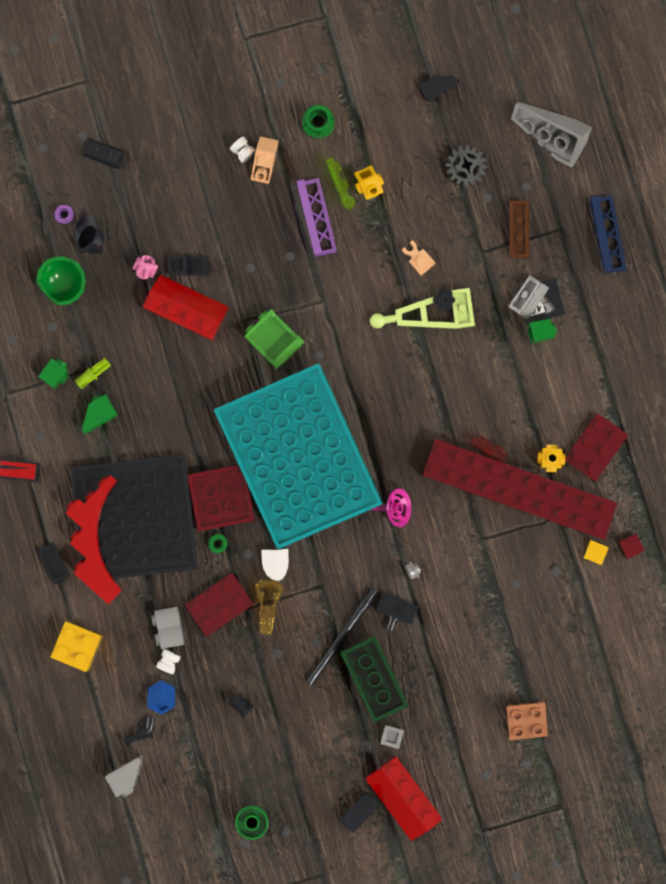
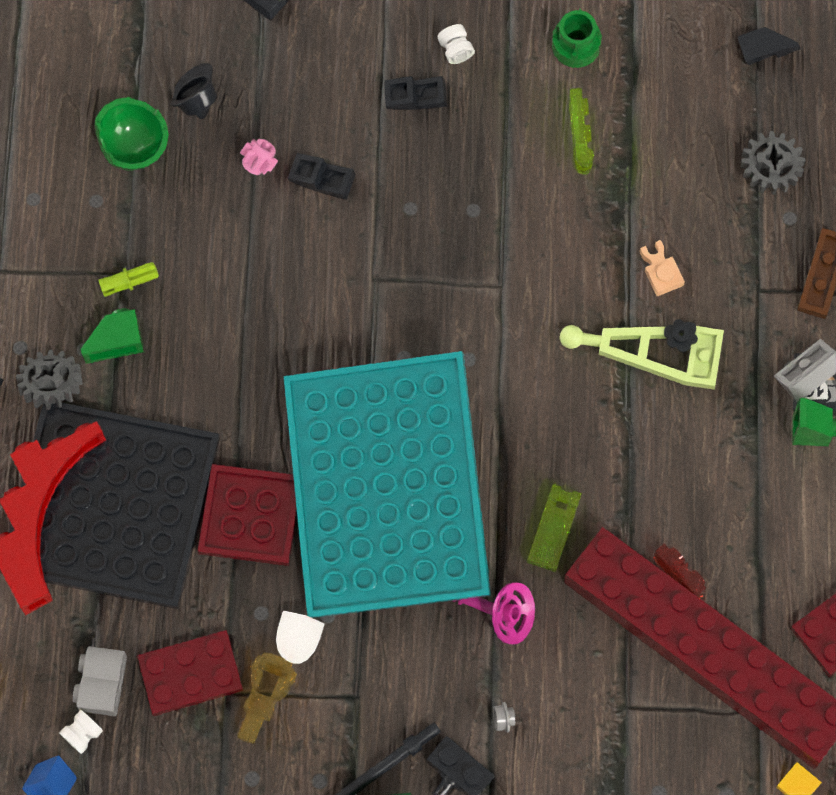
camera: 25 degrees right, 15 degrees down
(54, 373) = (73, 261): green brick -> none
(59, 210) = (167, 47): medium lavender plate -> none
(71, 461) = (49, 379): none -> dark grey gear
(185, 307) = (295, 232): red slope -> none
(213, 548) = (217, 572): green plate -> none
(228, 190) = (415, 94): none -> black slope
(264, 160) = (481, 66): light nougat slope -> none
(273, 338) = (409, 313): bright green panel -> none
(313, 233) = (520, 160): medium lavender fence -> none
(369, 182) = (622, 140): yellow brick -> none
(405, 445) = (553, 529): none -> clear neon green plate
(543, 458) = (764, 623): yellow brick -> none

